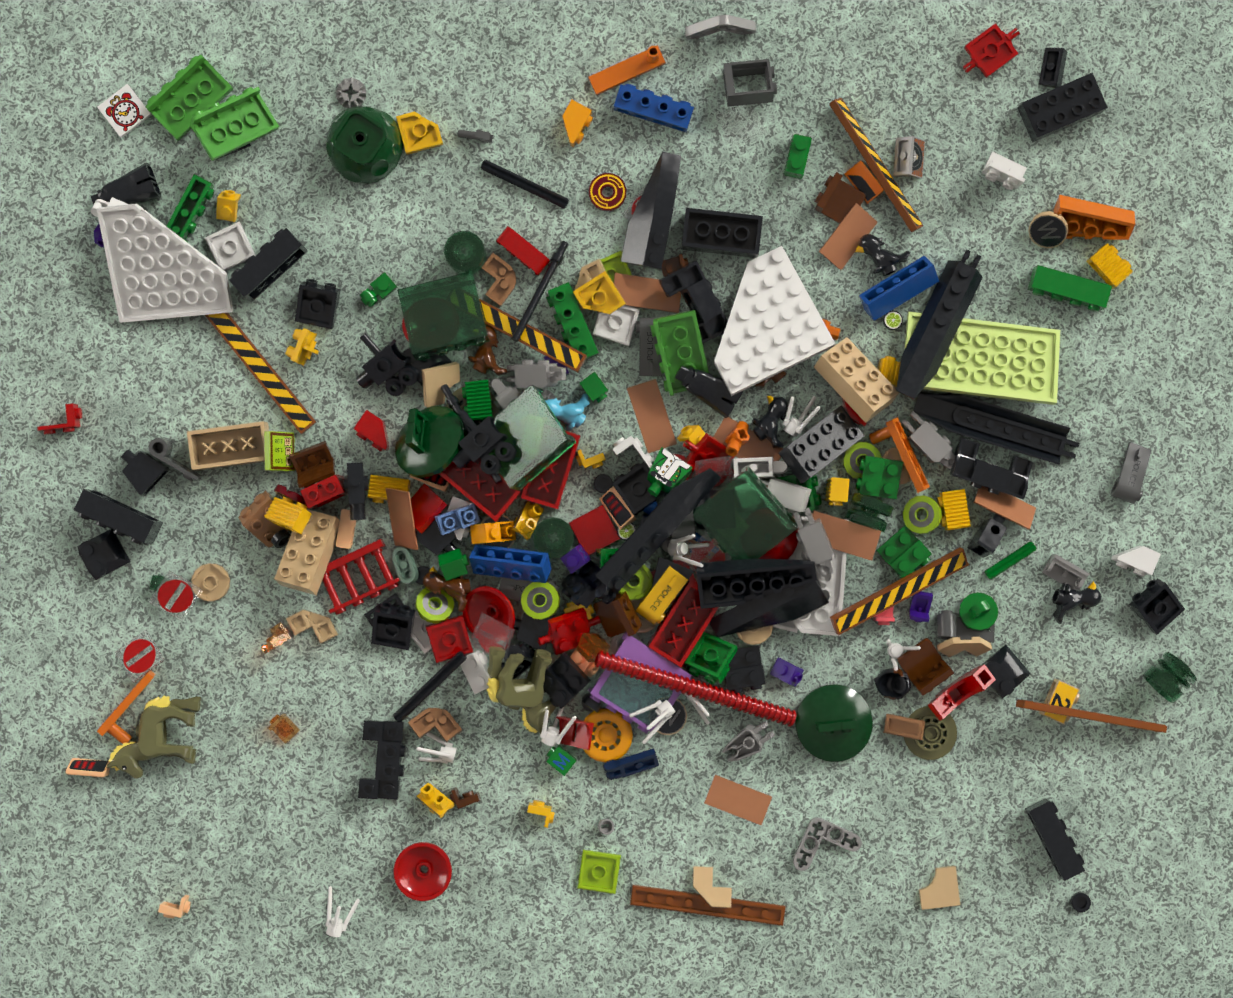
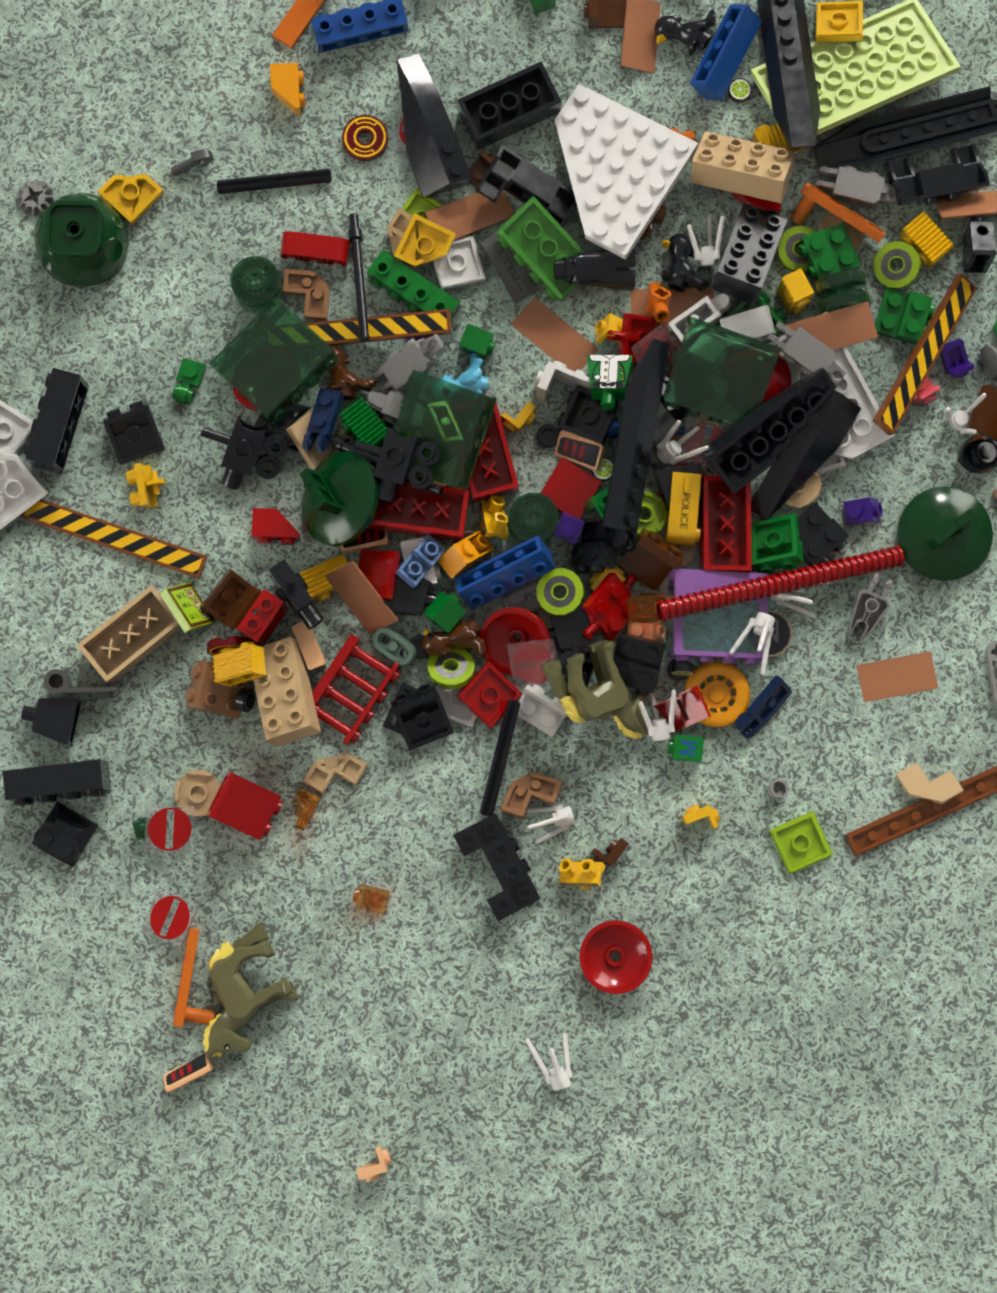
camera: 35 degrees left, 5 degrees down
(234, 612) = (244, 805): none -> red slope
(451, 378) = (323, 419): none -> dark blue hinge
(994, 315) = (839, 21): none -> yellow tile

